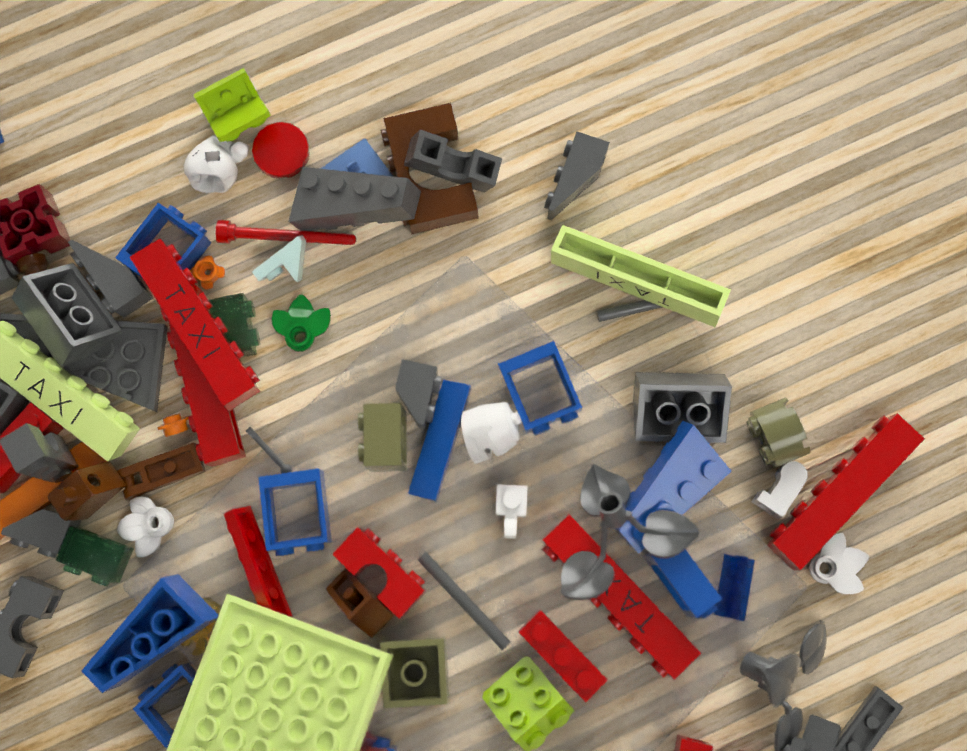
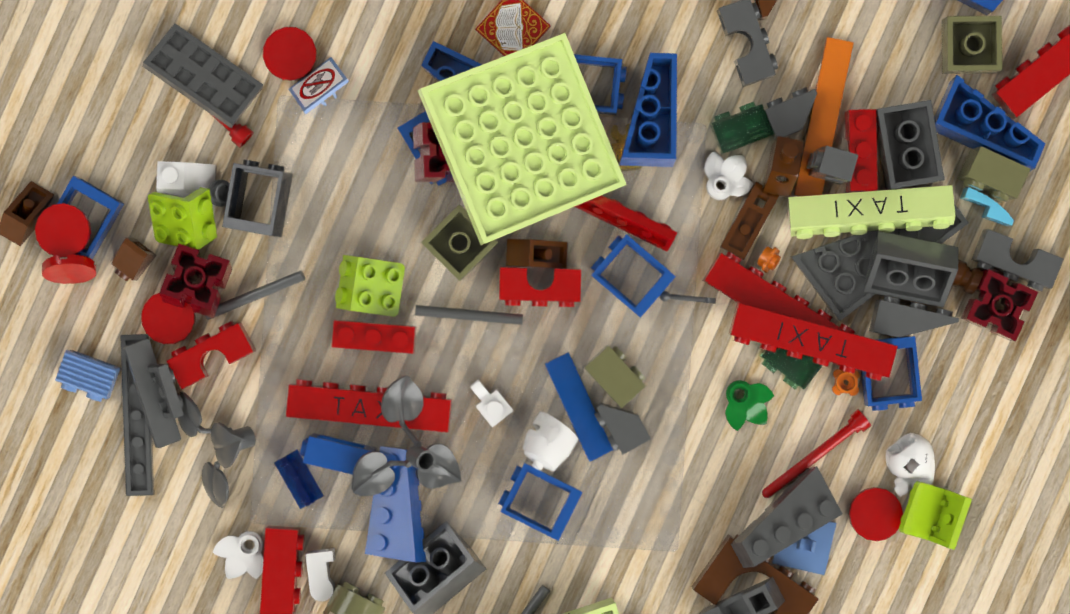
camera: 130 degrees right, 10 degrees up
(290, 256) = (796, 442): light aqua slope -> none

